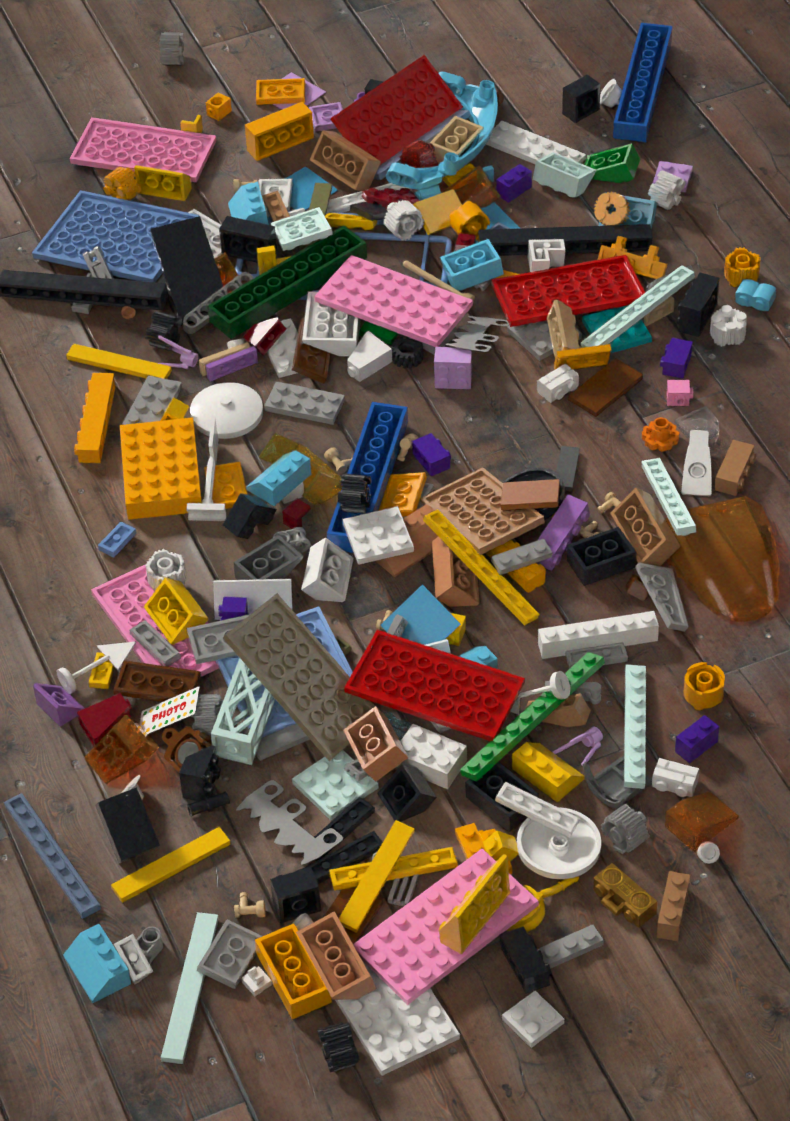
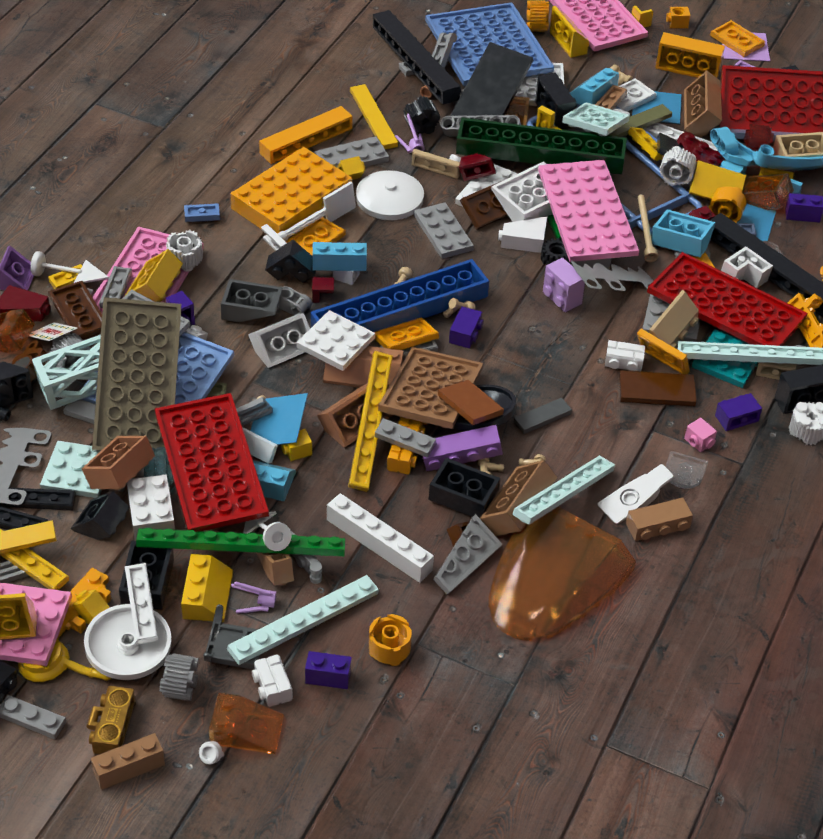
camera: 45 degrees right, 0 degrees up
(231, 363) = (435, 169): medium lavender tile -> none
(255, 591) = (212, 313): white tile -> none
(323, 481) = (381, 263): clear yellow windscreen -> none
(355, 493) = (355, 298): black brick -> none
(612, 654) = (364, 553): light grey tile -> none
(660, 435) = (642, 451): orange plant -> none

